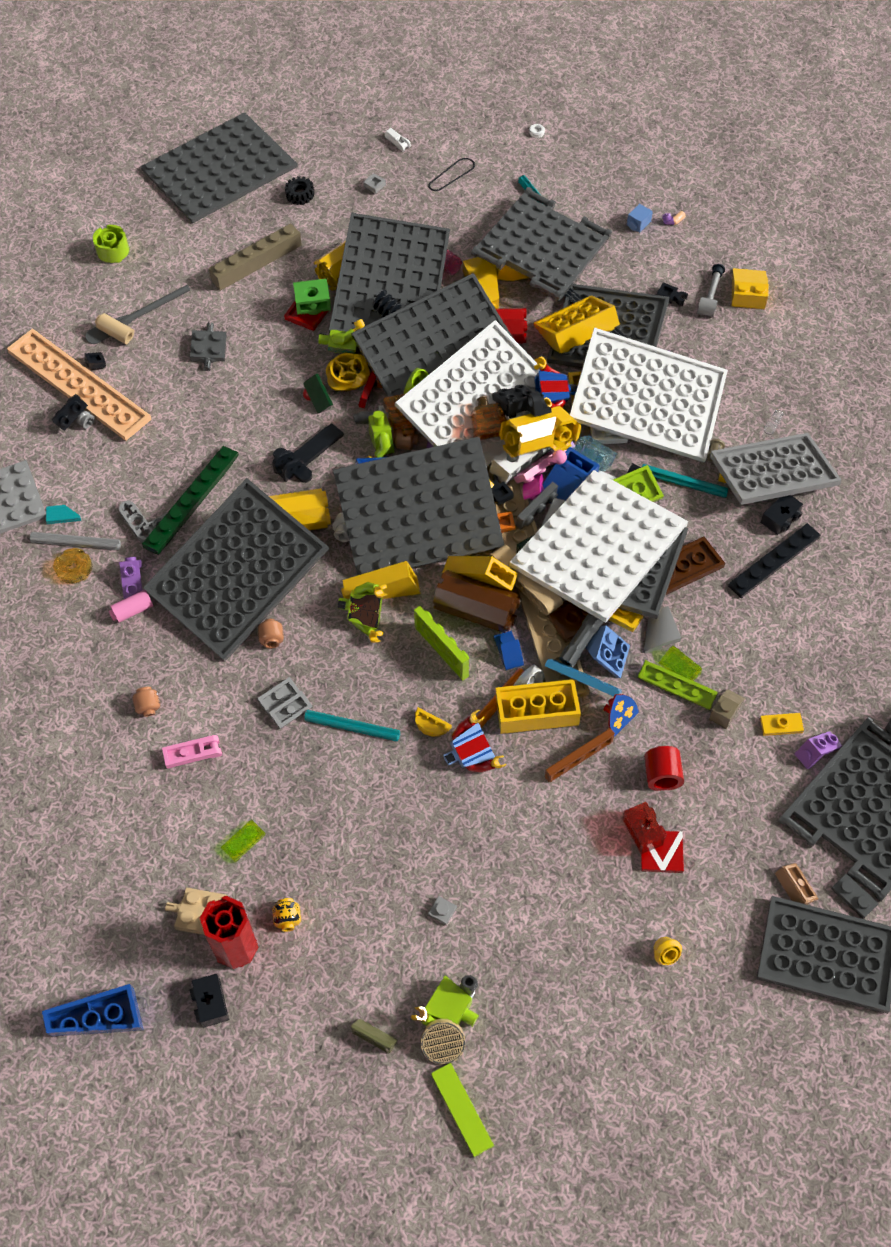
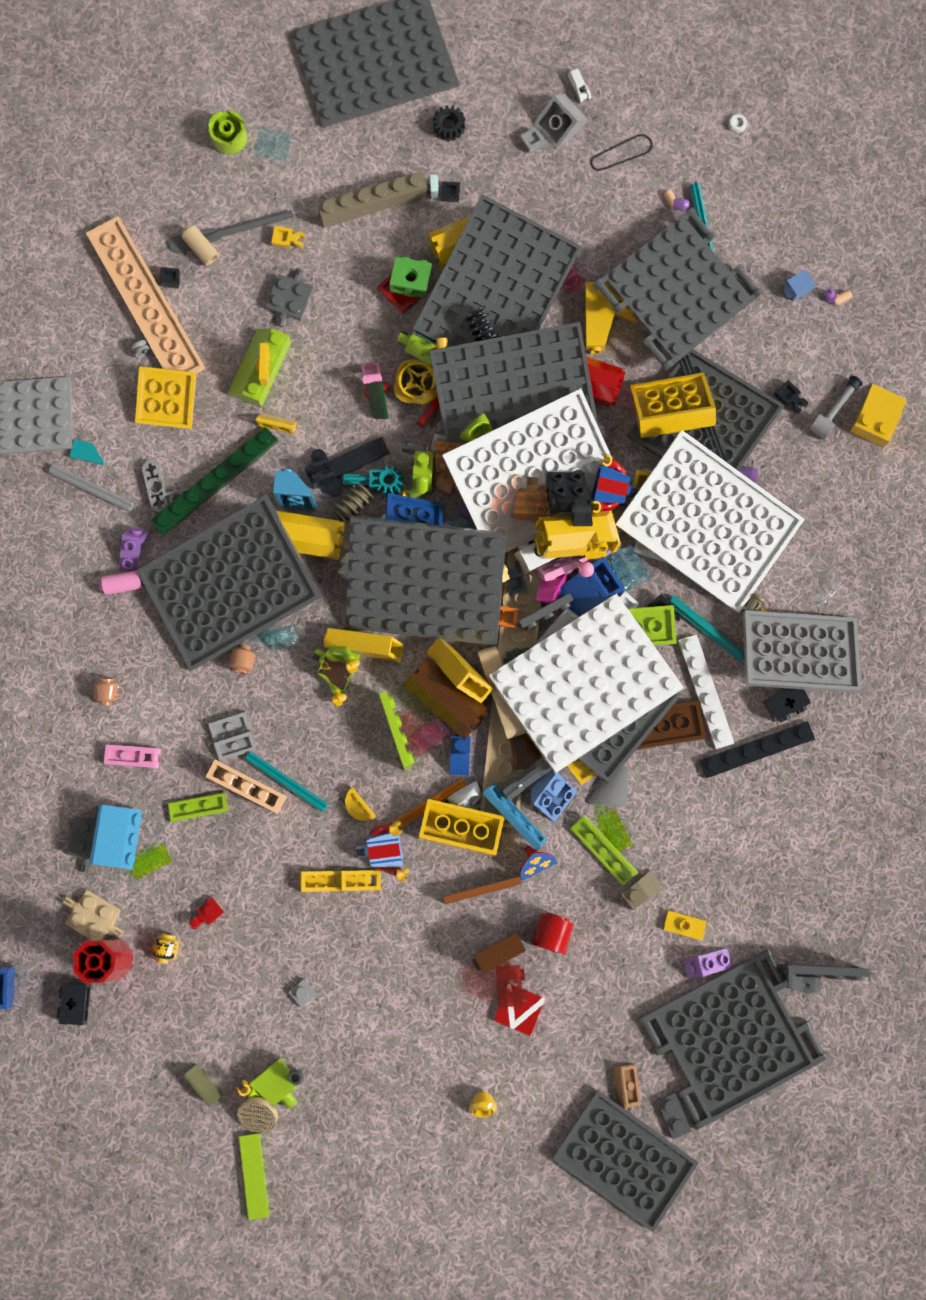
camera: 20 degrees right, 20 degrees up
(69, 412) = (125, 336): black bracket -> none
(74, 575) = (72, 523): clear yellow plate -> none
(122, 447) = (165, 397): none -> yellow plate
(153, 245) = (273, 144): none -> clear light blue piece
(174, 840) = (82, 839): none -> dark grey plate
(189, 304) = (284, 237): none -> yellow plate
(201, 401) = (246, 382): none -> lime slope
(201, 823) = (115, 837): none -> dark azure slope
(205, 389) = (263, 364): none -> yellow plate
(232, 441) = (276, 423): none -> yellow slope
(271, 474) = (292, 491): none -> dark azure slope
(273, 776) = (197, 807): none -> lime tile
(304, 375) = (371, 373): none -> bright pink tile
(304, 601) = (282, 638): none -> clear light blue hips
(305, 235) = (434, 186): none -> light aqua tile
(315, 738) = (246, 786): none -> light nougat brick
(318, 868) = (208, 912): none -> red plate
(320, 235) = (450, 191): none -> black plate
(325, 476) = (352, 502): none -> dark tan piece
(342, 454) = (376, 480): none -> teal gear
(392, 164) = (560, 120): none -> light grey slope
(444, 793) = (345, 881): none -> yellow slope
(475, 639) = (429, 737): none -> clear pink brick
(513, 193) = (676, 203): none -> arm
(620, 798) = (498, 953): none -> reddish brown brick
(707, 528) = (706, 692): none -> white plate

